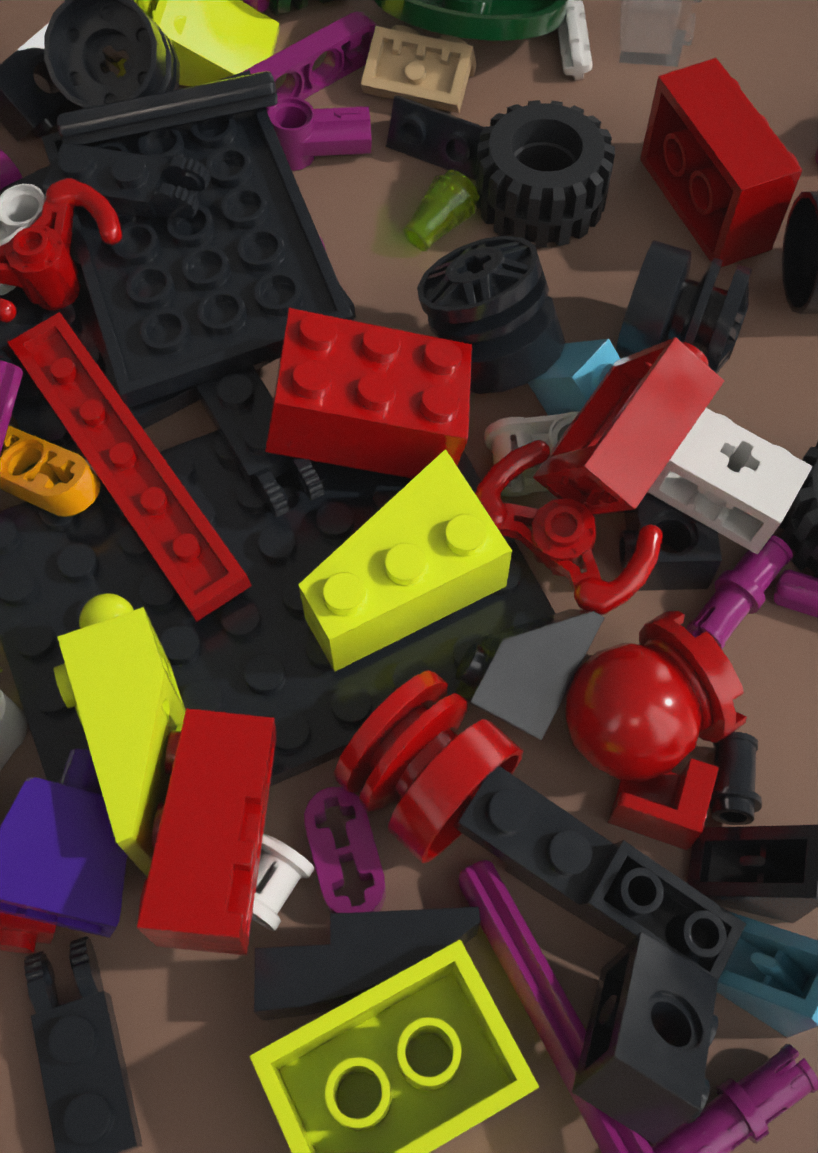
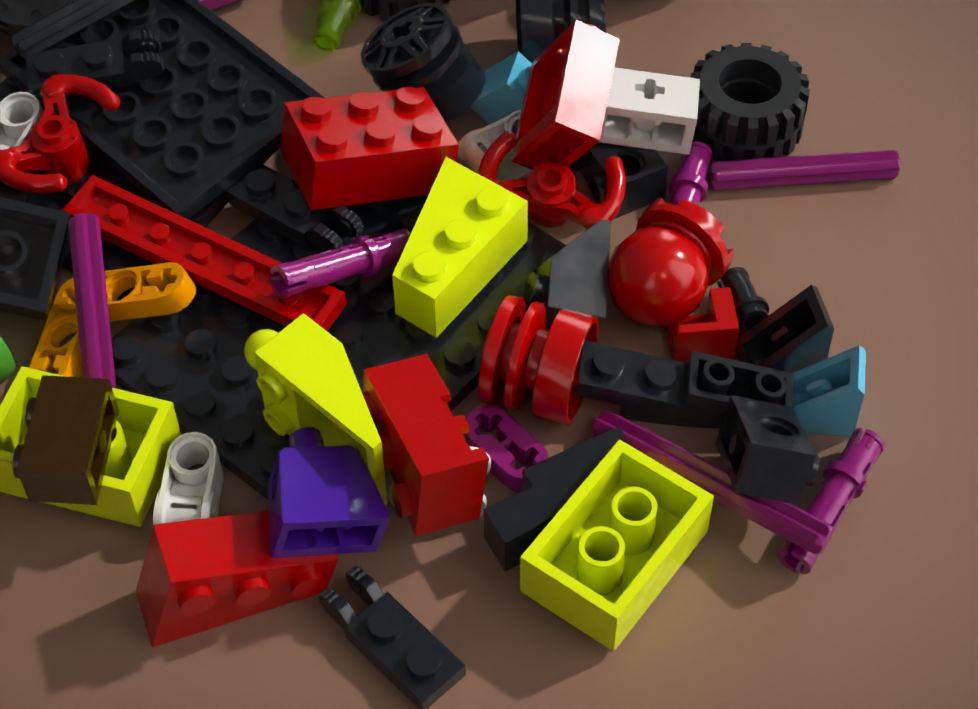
camera: 25 degrees left, 10 degrees down
(252, 537) = (360, 257): none -> magenta pin

